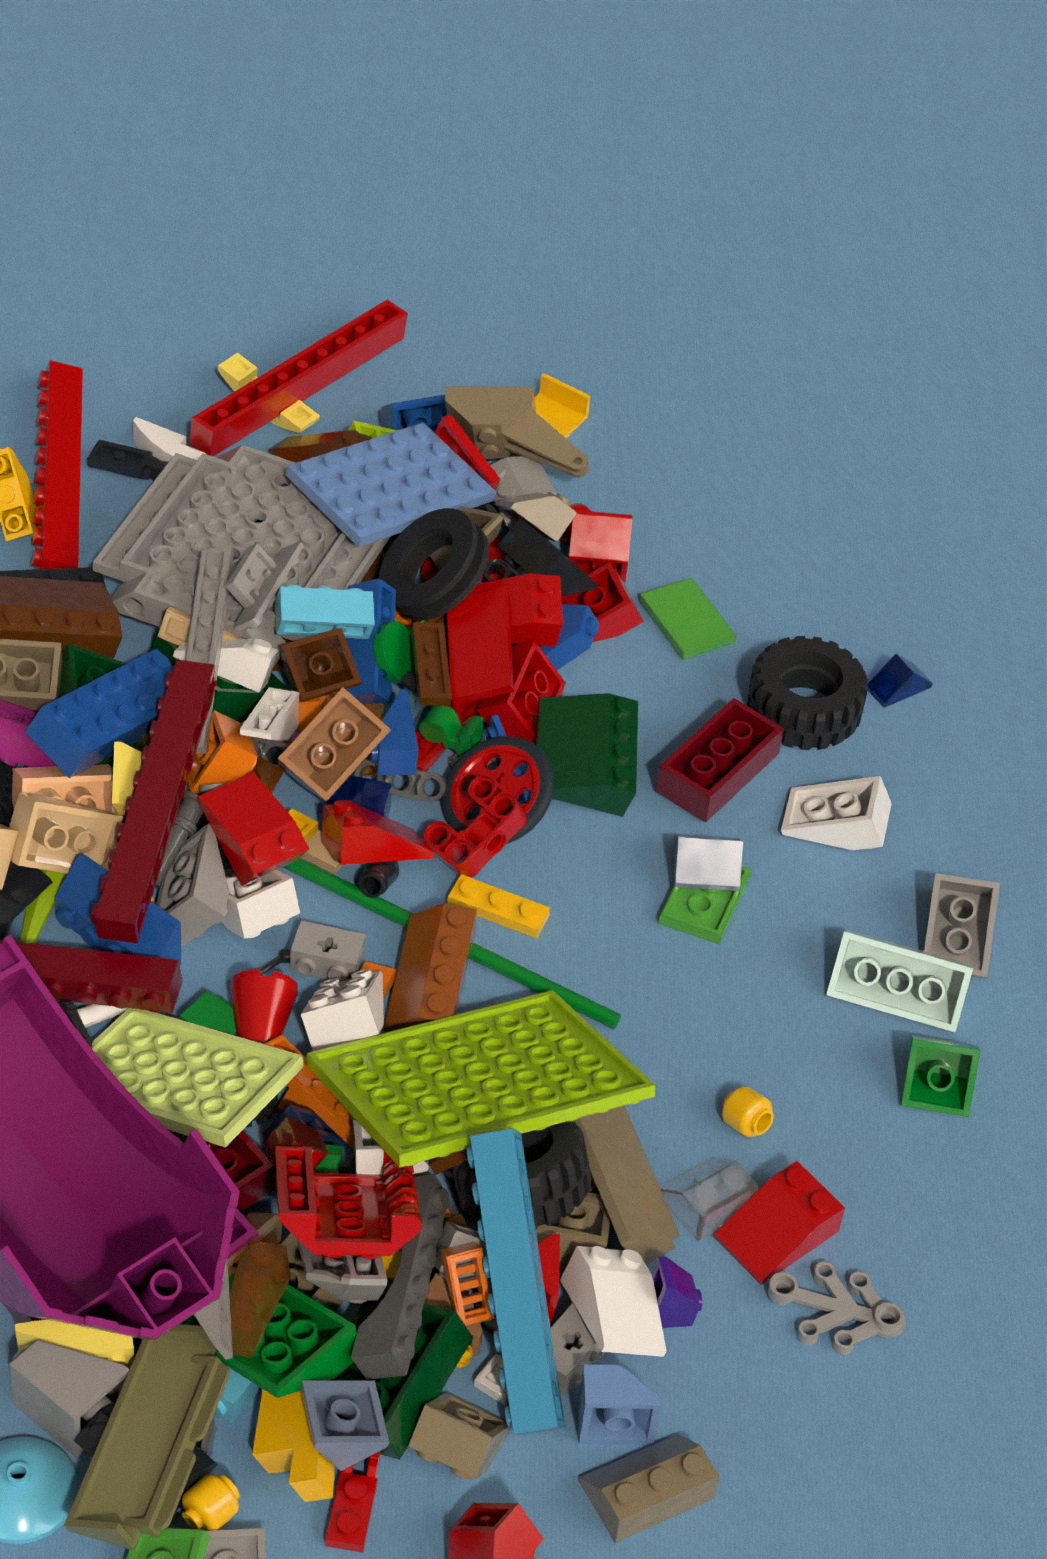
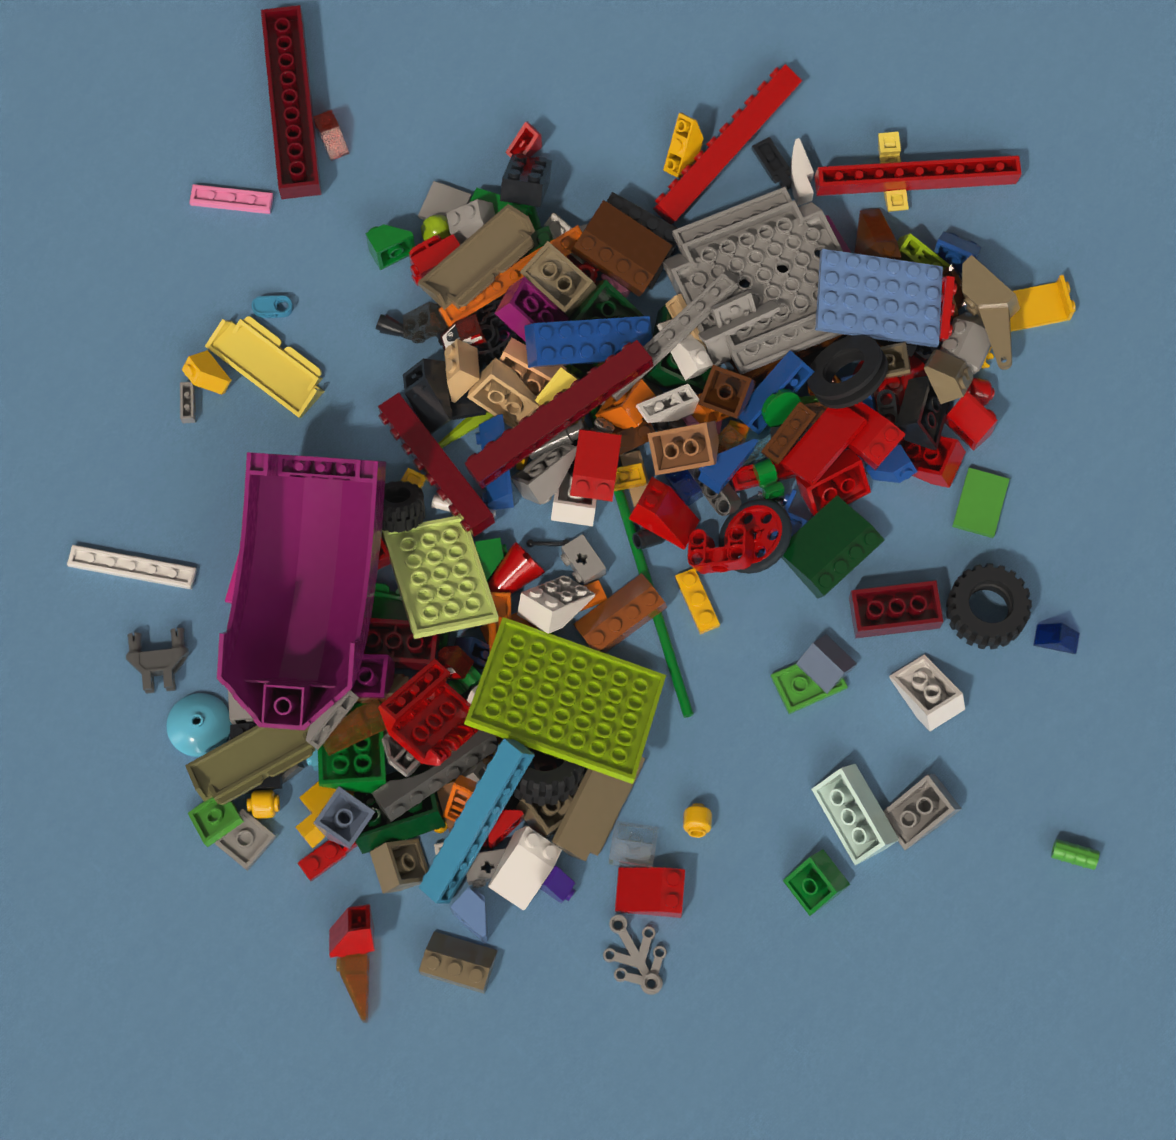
camera: 50 degrees right, 25 degrees up
(324, 609) = (753, 361): medium azure brick -> none

